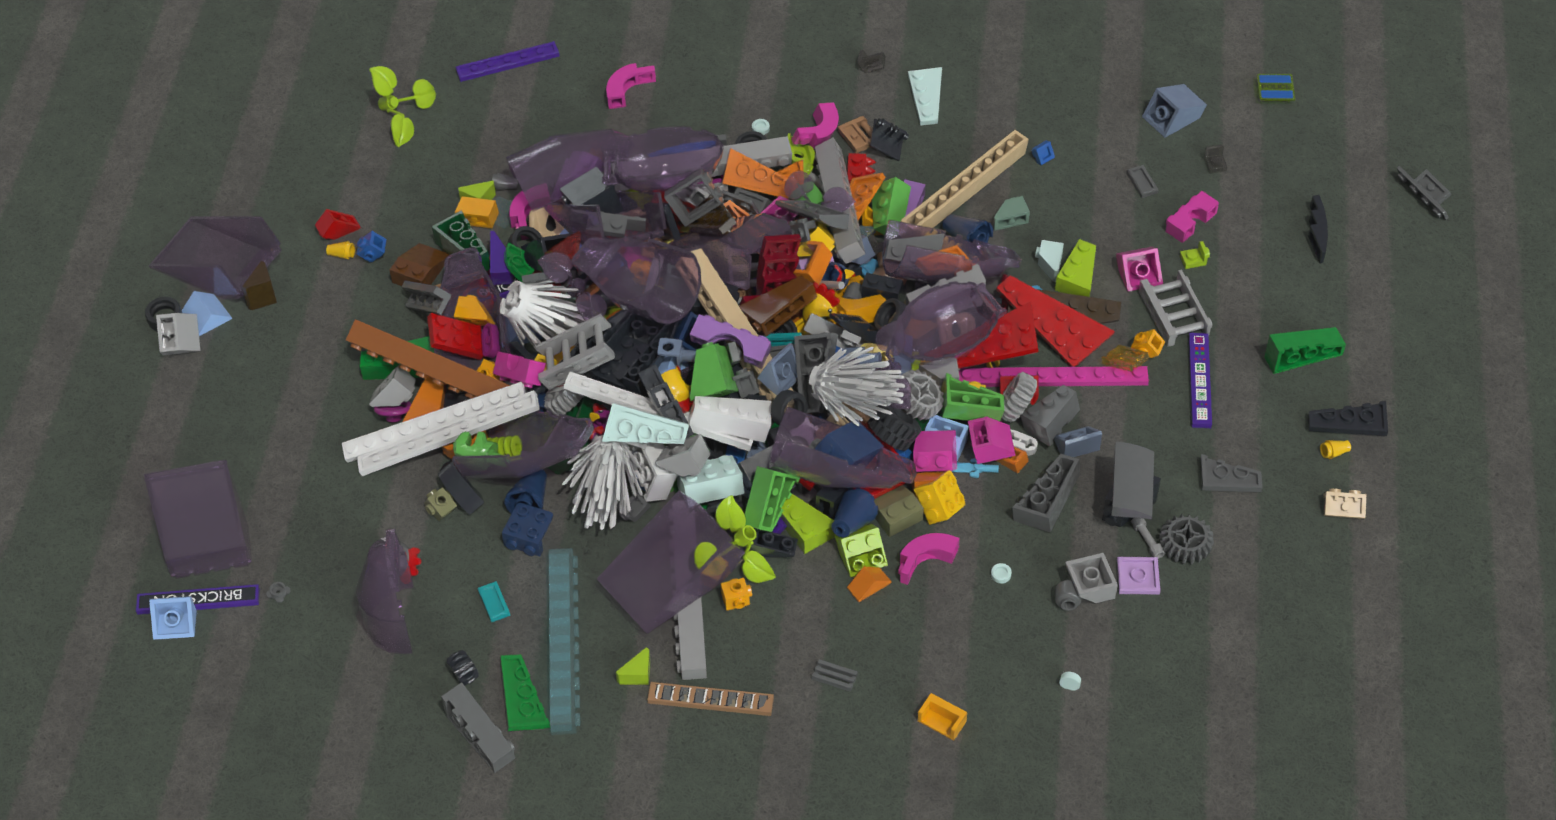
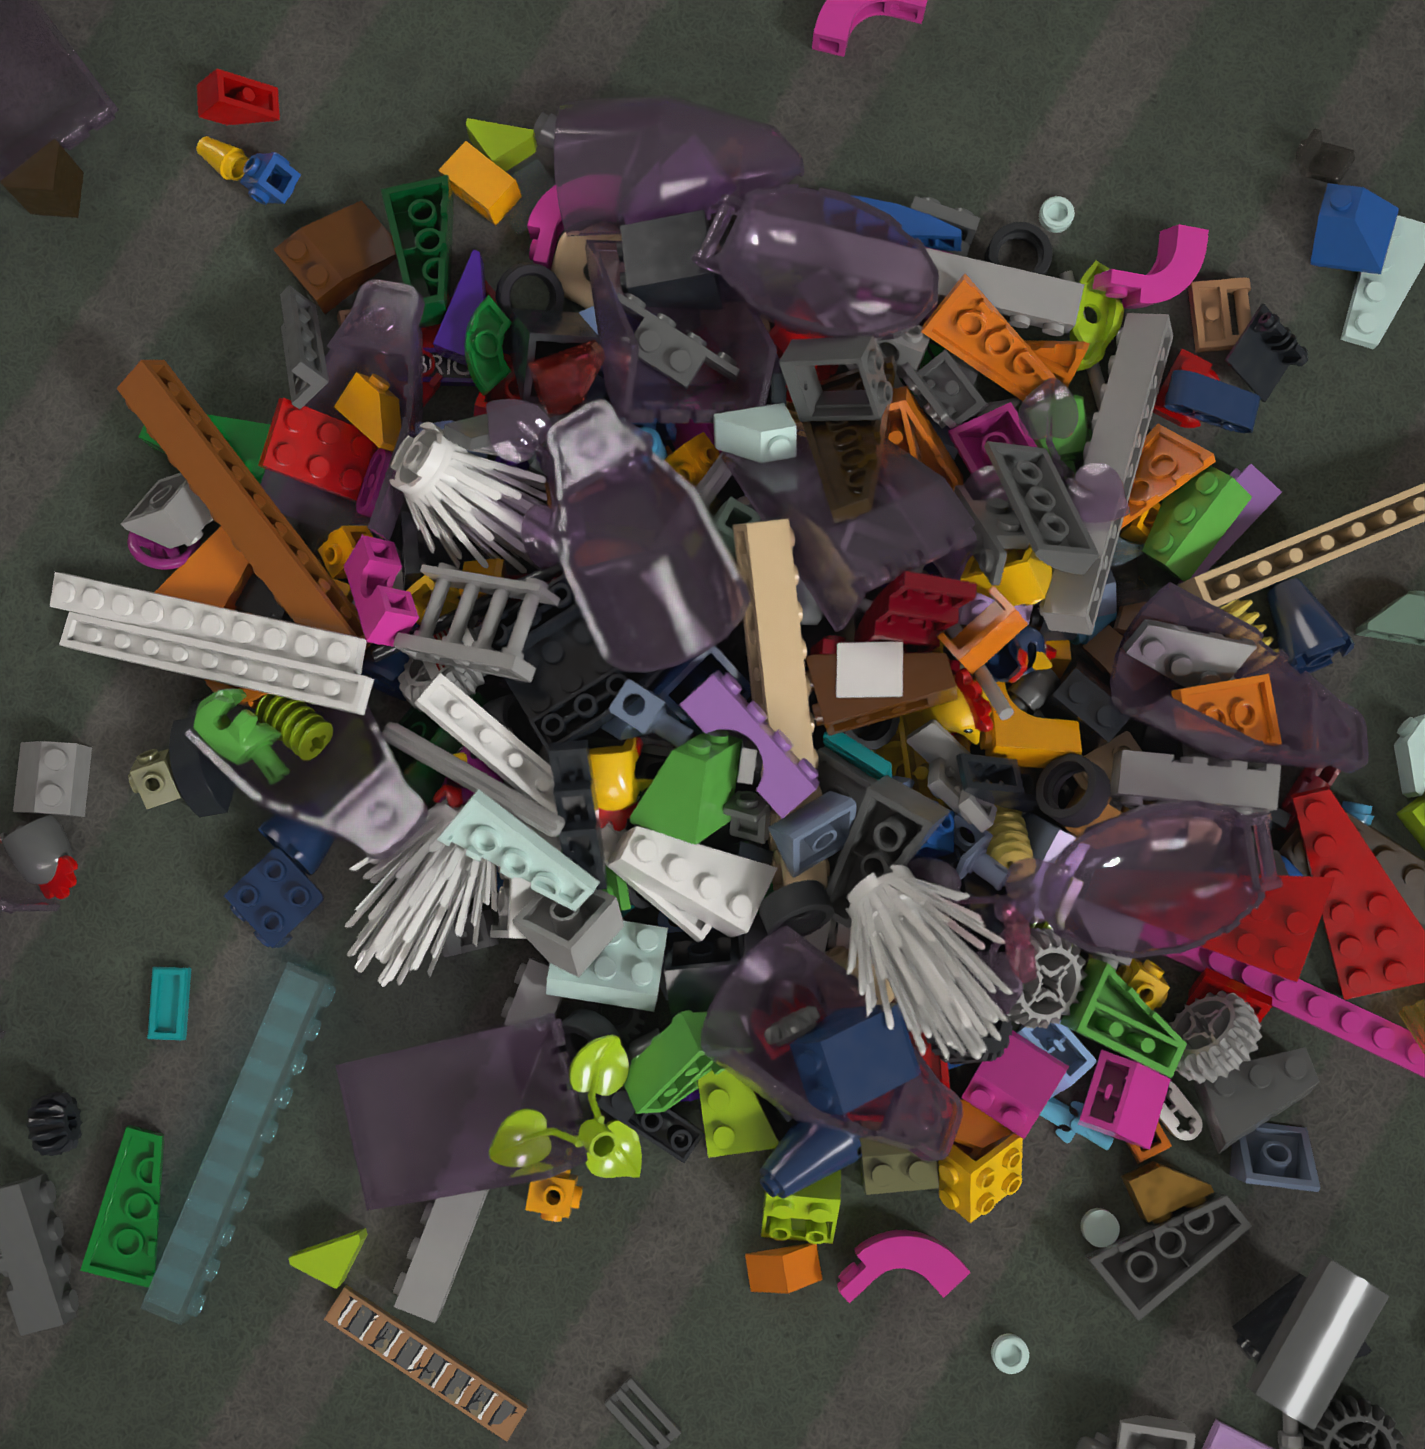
camera: 25 degrees right, 30 degrees up
(379, 519) = (52, 778): none -> light grey slope
(604, 411) = (473, 779): none -> light grey axle
(670, 233) = (757, 433): none -> light aqua slope
(770, 296) = (869, 669): none -> white sticker
(872, 163) = (1212, 401): none -> dark blue beam
(897, 362) = (1018, 945): none -> clear pink slope
(899, 80) = (1353, 230): none -> blue slope
(1010, 501) = (1100, 1227): none -> light aqua tile
(1030, 470) = (1160, 1190): none -> pearl gold slope

